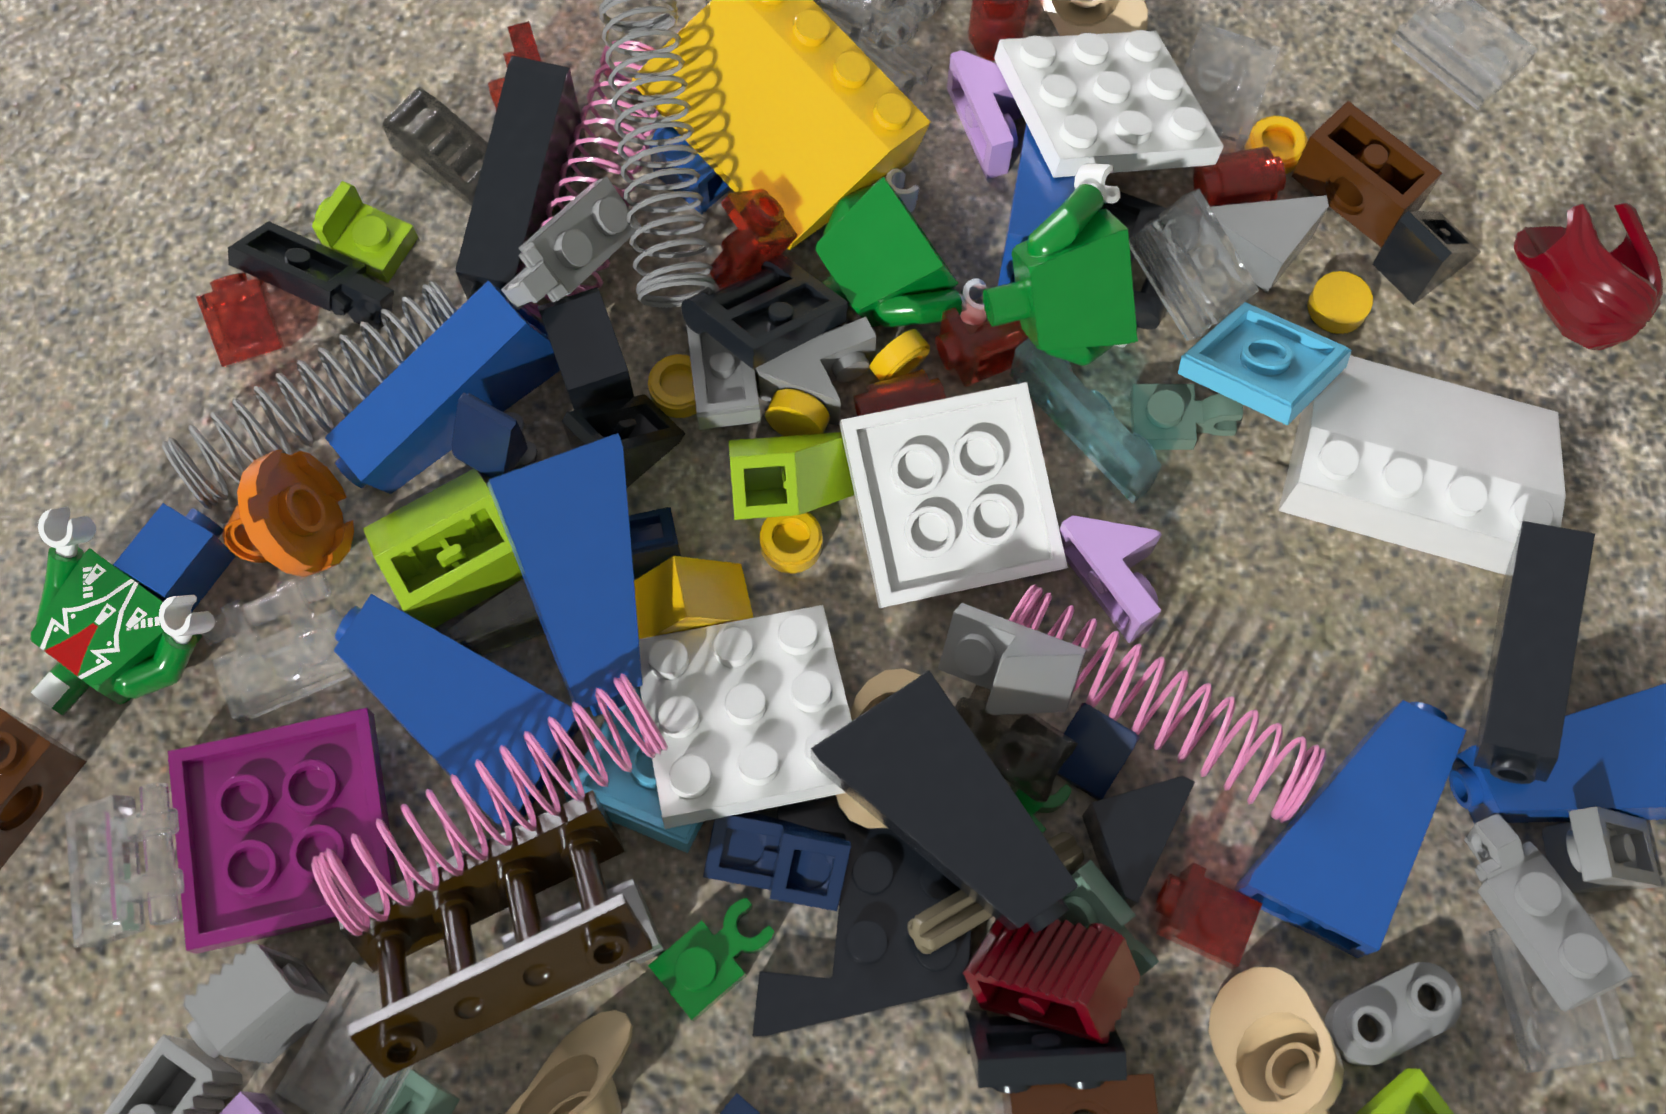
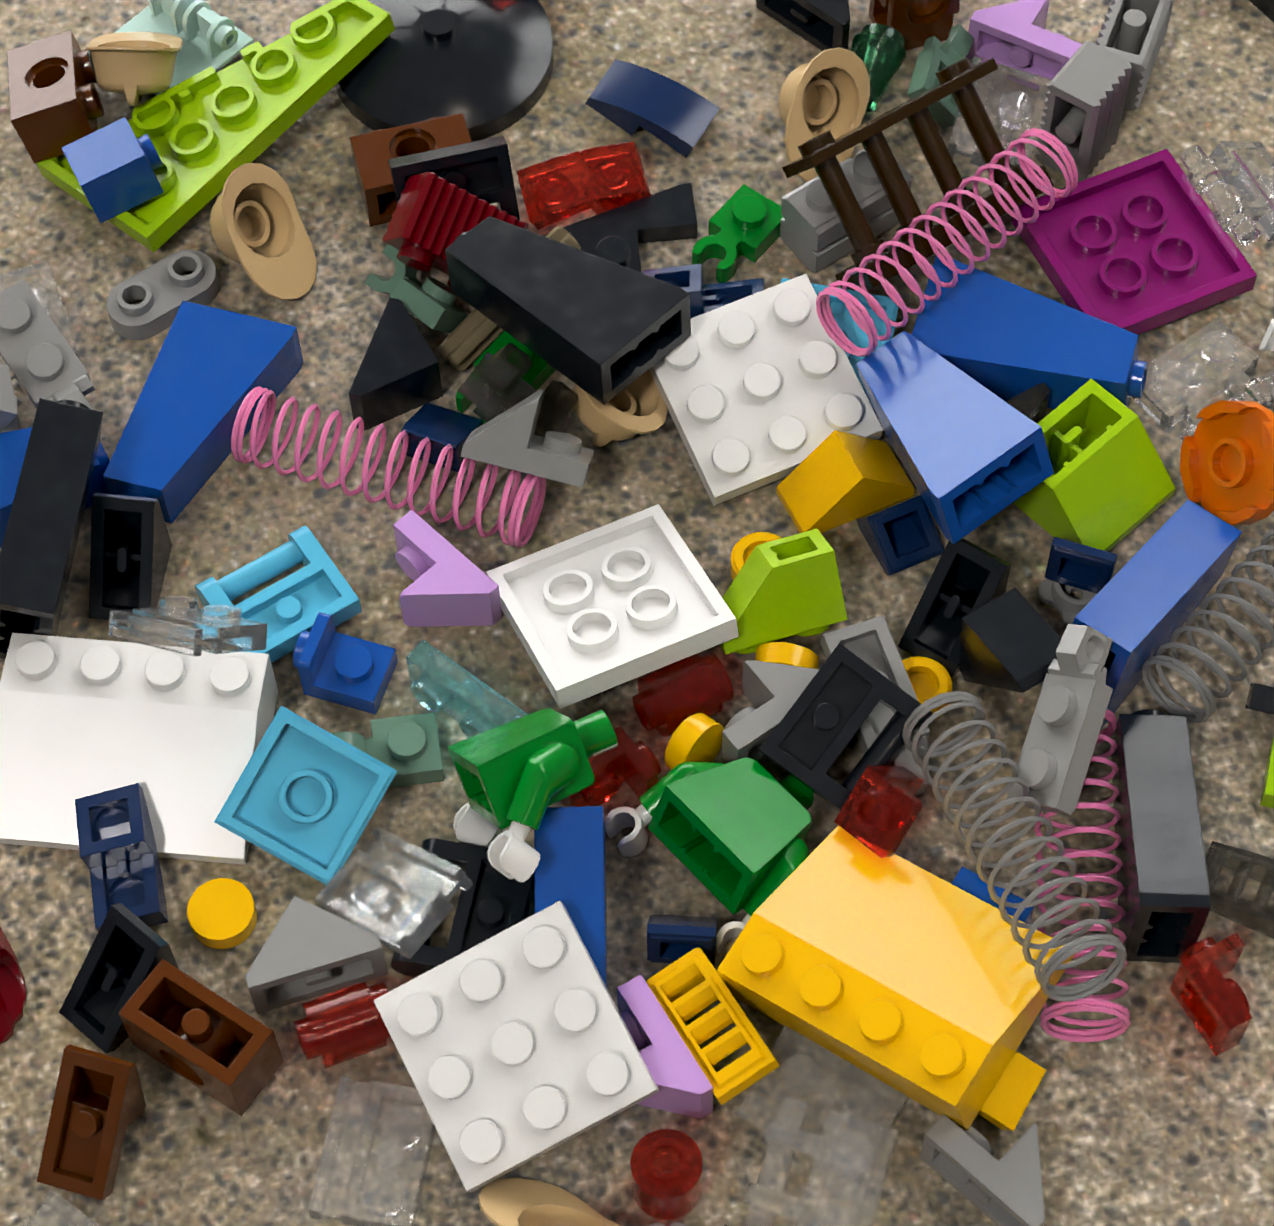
camera: 170 degrees right, 10 degrees down
(880, 1057) = (583, 180): none -> clear red slope
(946, 202) = (675, 935): none -> dark blue slope
(968, 139) = (689, 988): none -> yellow slope
(1206, 916) = (331, 331): clear red bracket -> none
(1216, 507) = (343, 666): none -> blue bracket
(1271, 569) = (291, 602): none -> medium azure plate
(1282, 137) = (302, 1100): yellow tile -> none
(1376, 531) = (188, 630): none -> clear plate
(1430, 353) = (121, 854): none -> dark blue slope
(1432, 656) = (126, 554): none -> black slope
(1455, 140) = (89, 1121): none -> reddish brown slope

